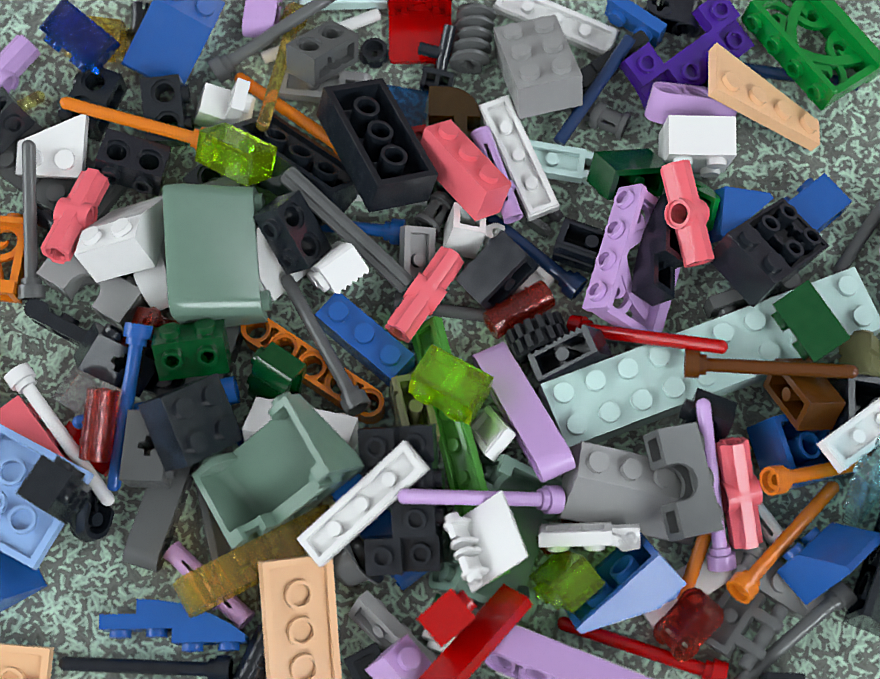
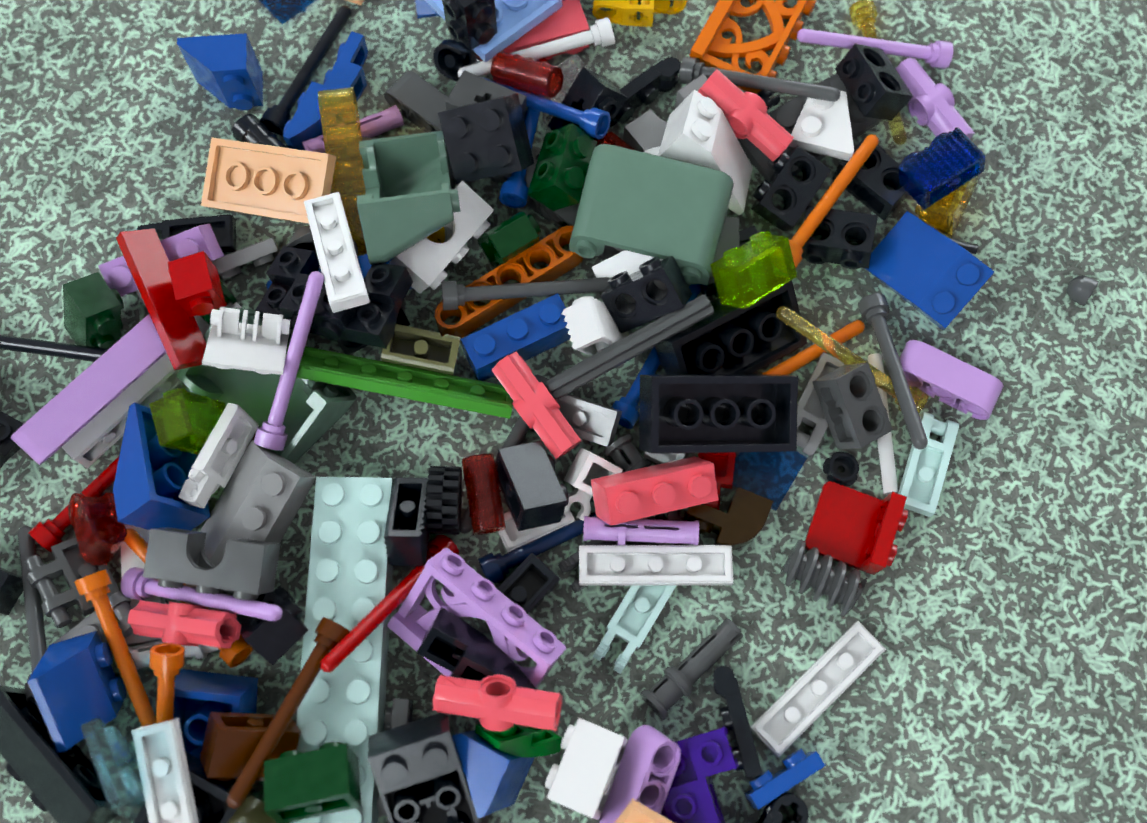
camera: 110 degrees right, 0 degrees up
(224, 105) = (823, 293): white brick -> none
(442, 56) = (792, 524): black arm -> none
(450, 385) = (421, 379): clear neon green brick -> none
(492, 432) = (366, 412): tile -> none
(525, 413) = (366, 446): lavender beam -> none
(538, 66) = (755, 628): light grey brick -> none
(594, 89) = (705, 684): dark blue bar -> none
(625, 168) = (587, 673): dark green brick -> none

